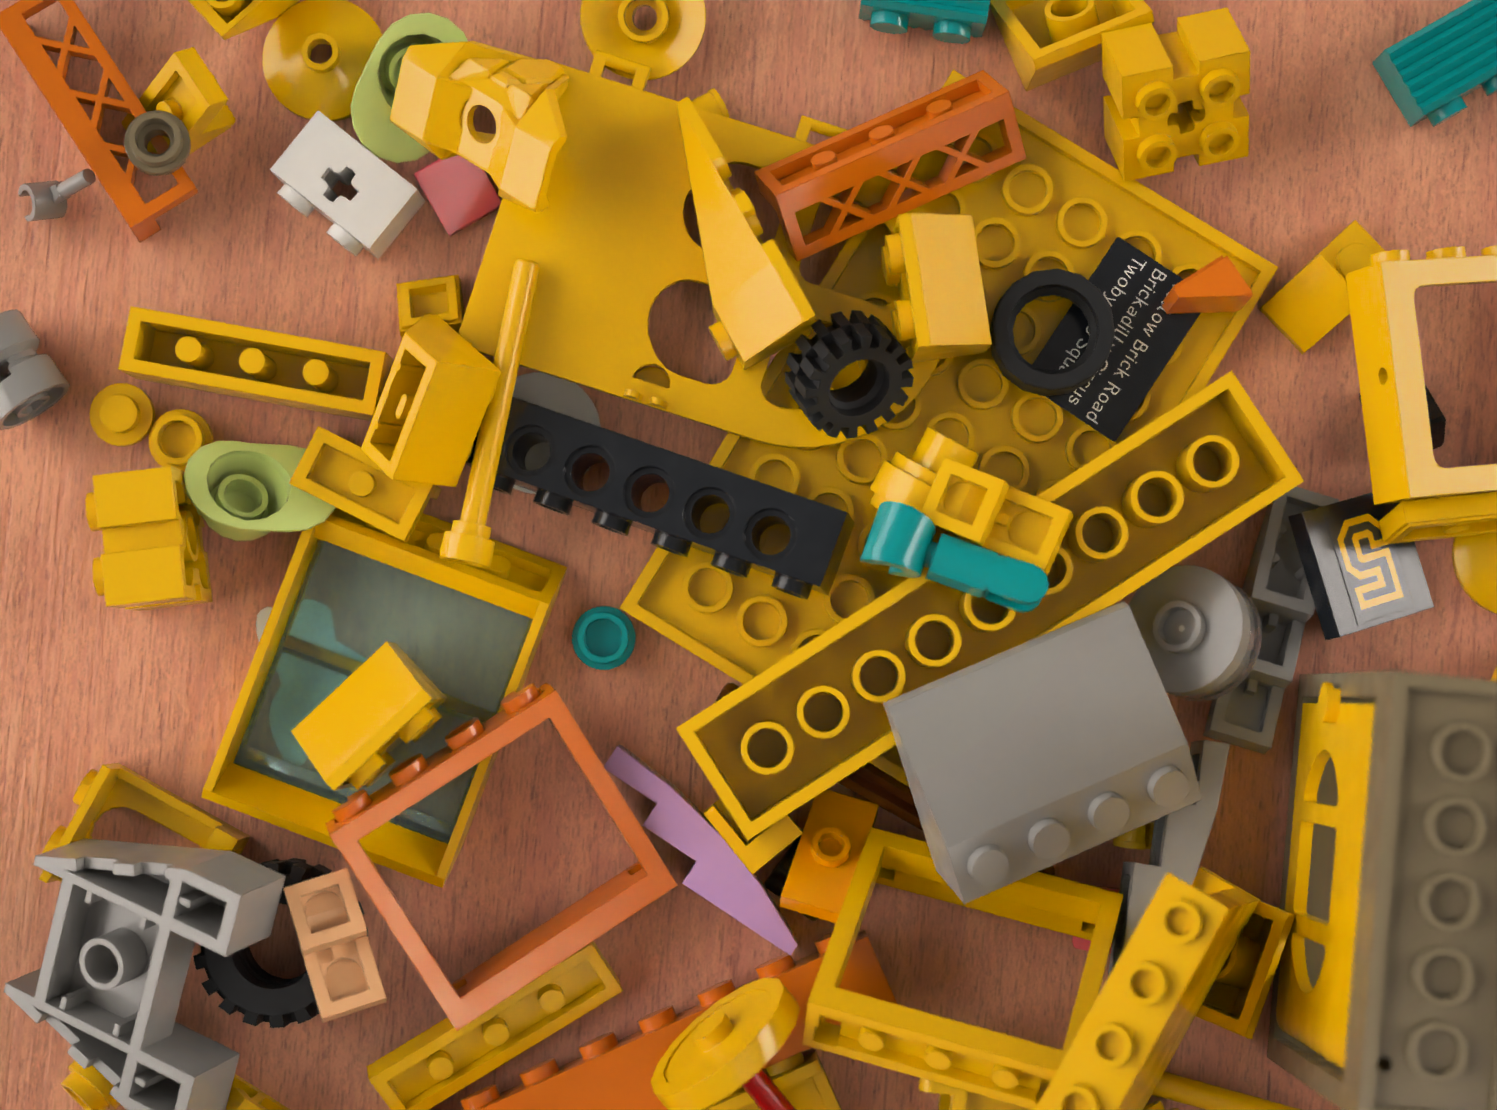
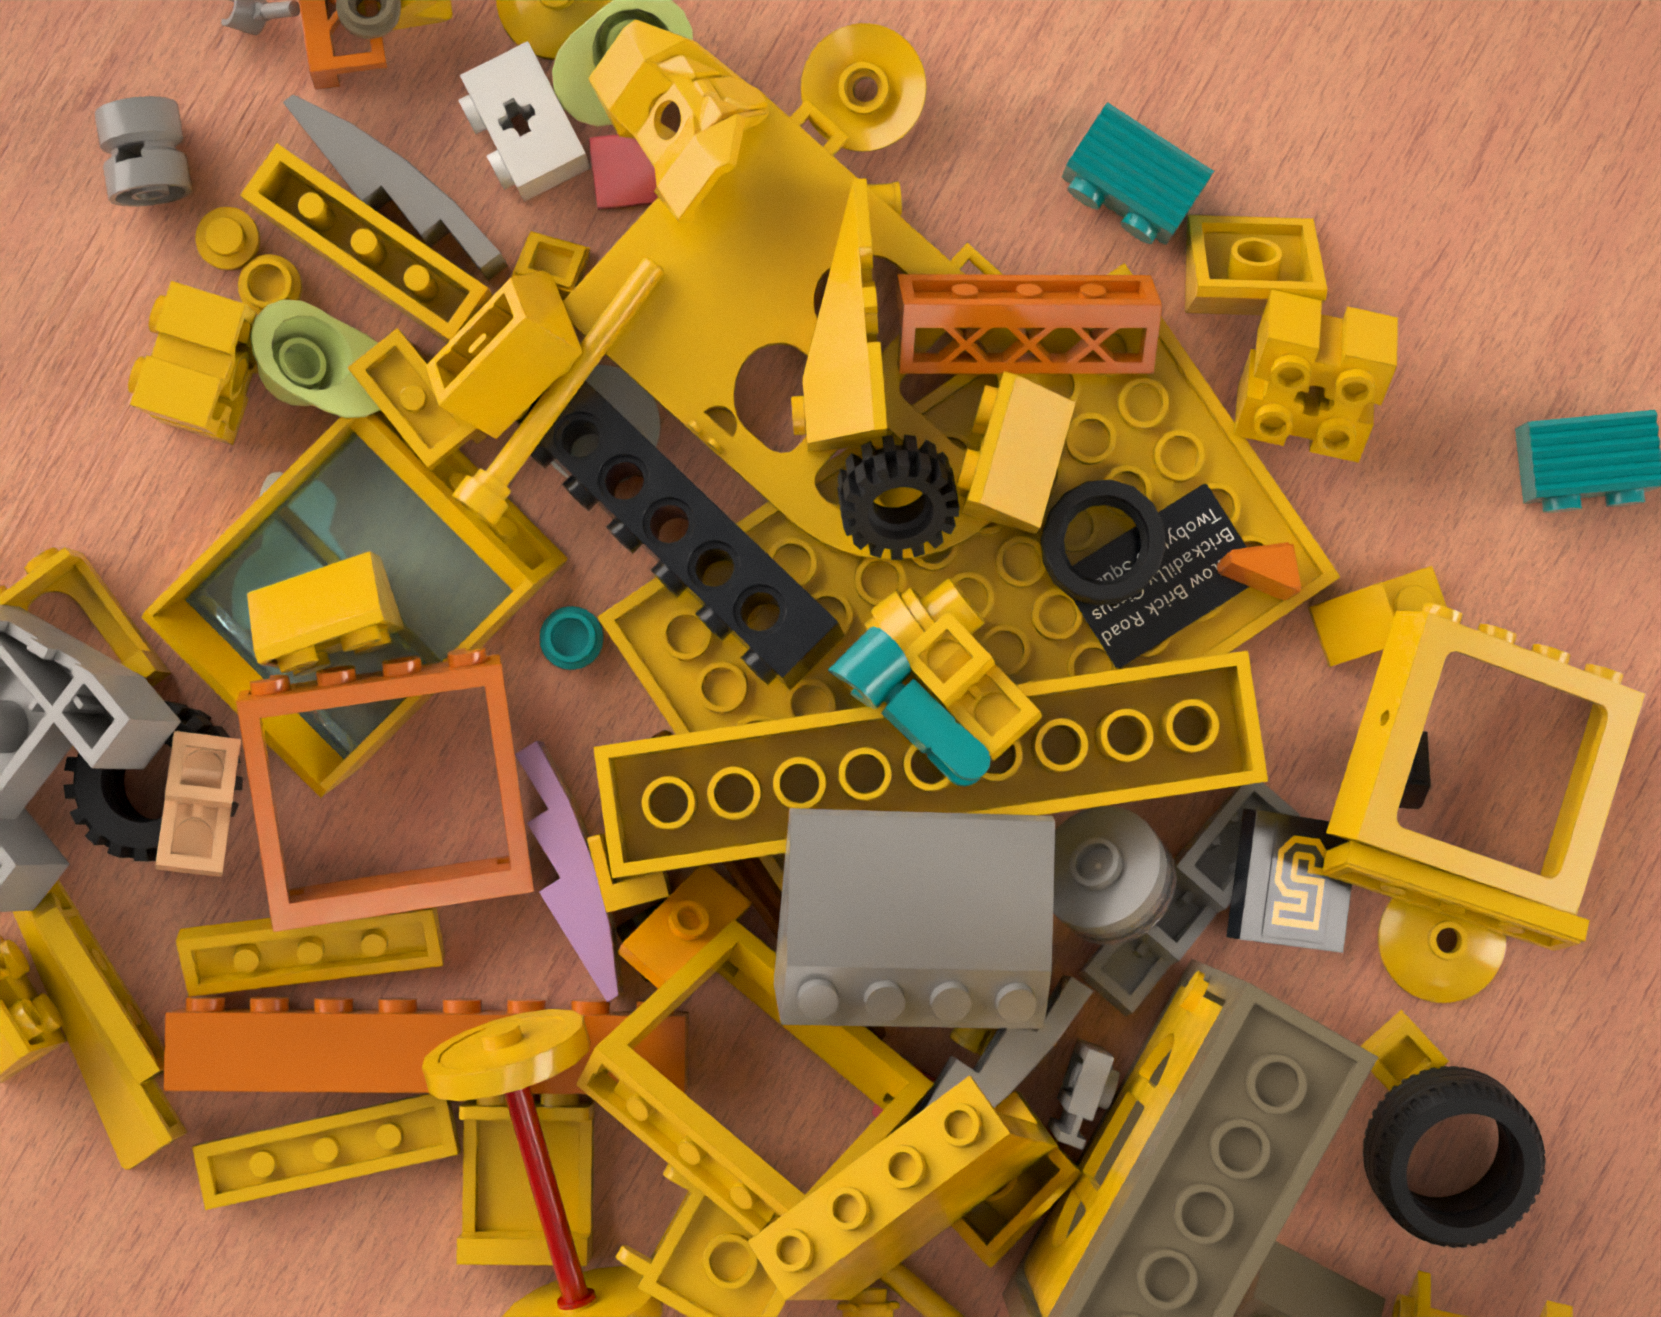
camera: 25 degrees right, 0 degrees up
(237, 292) = (382, 175): none -> light grey slope
(1259, 838) = (1086, 1085): none -> light grey plate

